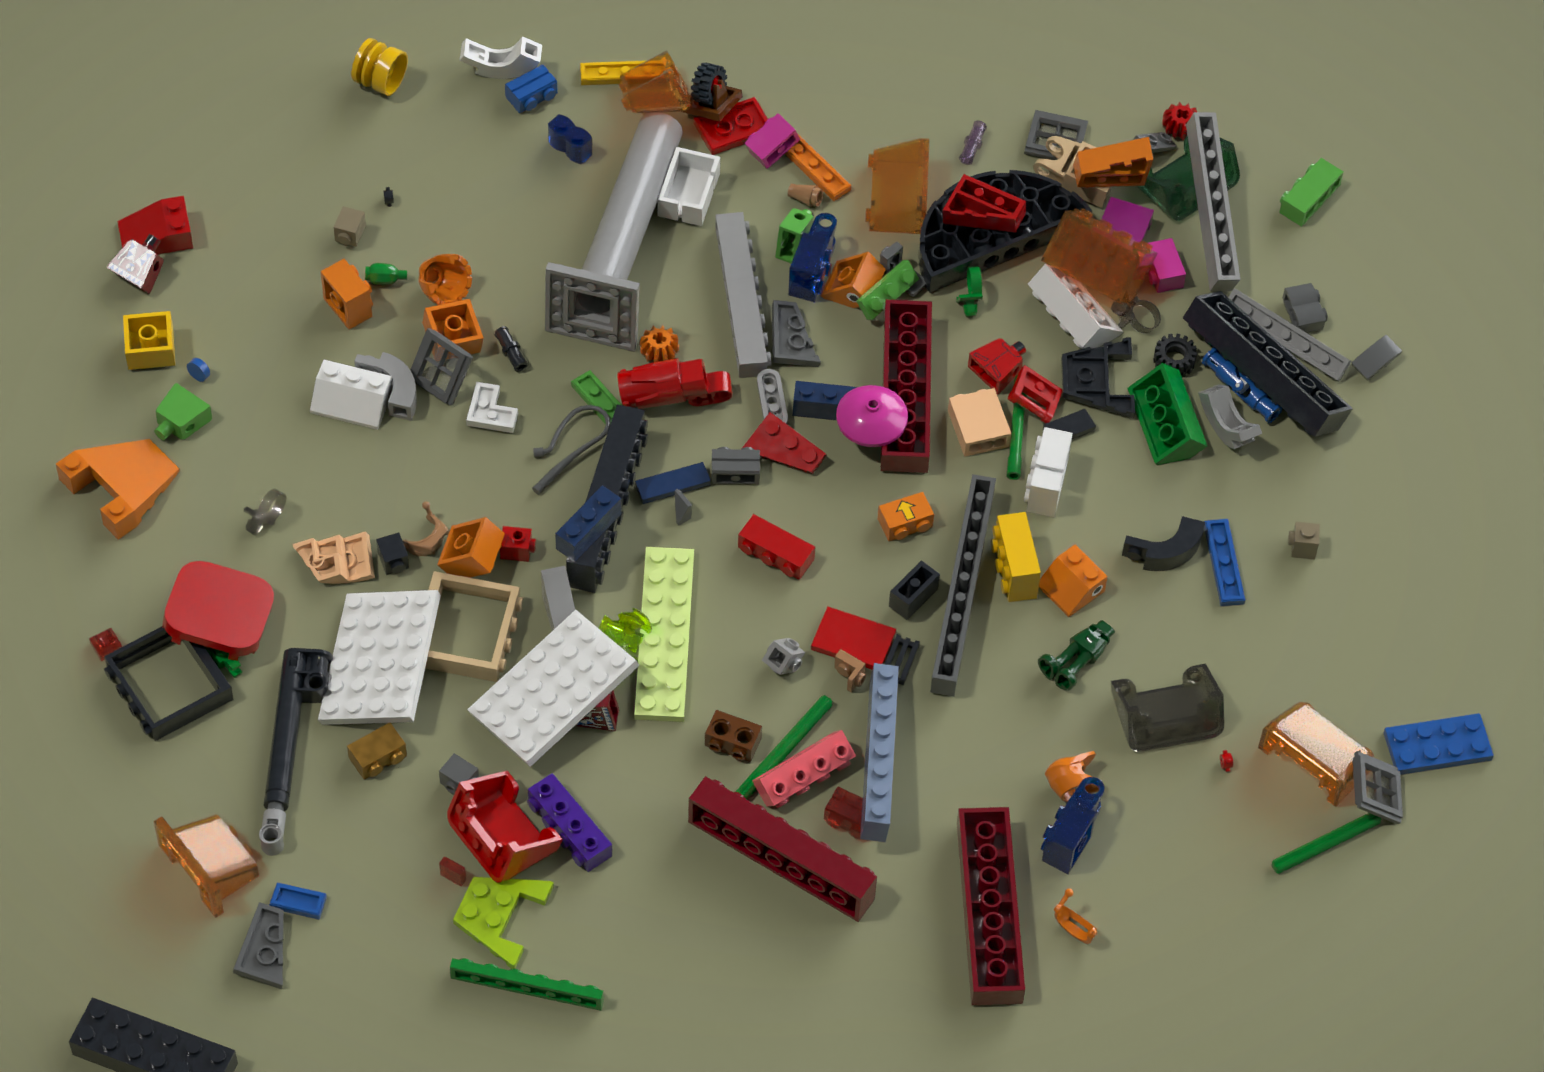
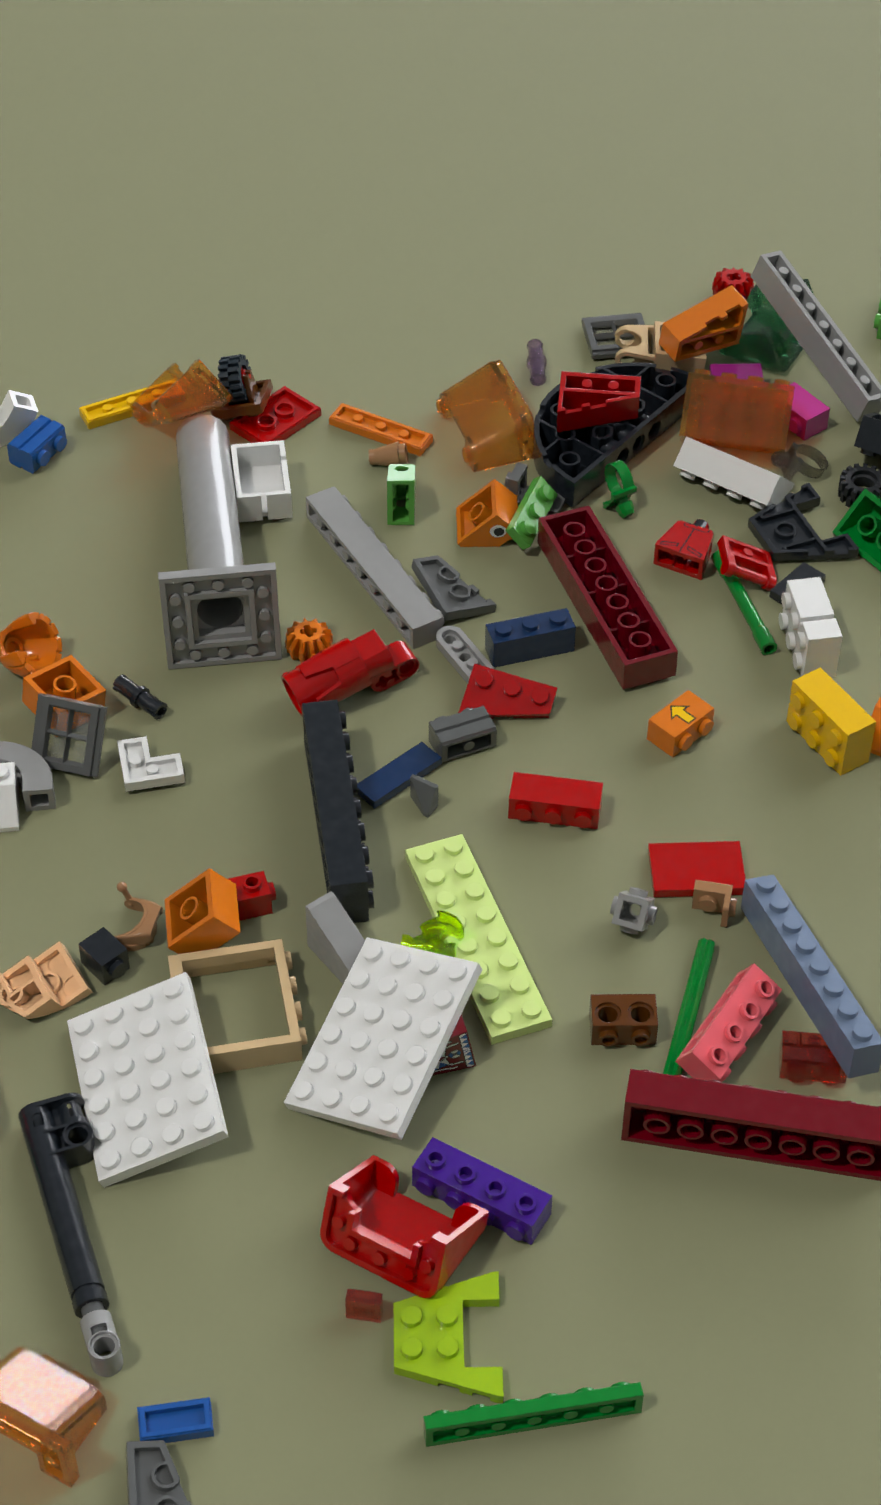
camera: 20 degrees left, 10 degrees down
(376, 750) = (193, 1191): pearl gold piece -> none
(456, 771) = (310, 1183): dark grey brick -> none
(557, 469) = (256, 804): dark grey piece -> none
(570, 139) = (104, 476): clear blue brick -> none
(588, 523) = (339, 833): dark blue brick -> none
(595, 394) = (267, 717): bright green tile -> none
(772, 140) = (328, 415): dark pink brick -> none
(813, 260) = (436, 508): clear blue brick -> none
(872, 425) = (591, 630): dark pink dish -> none
(905, 644) = (760, 854): black tile -> none
(914, 590) = (738, 792): black brick -> none
(963, 585) = (790, 773): dark grey brick -> none
(979, 422) = (702, 608): light nougat brick -> none

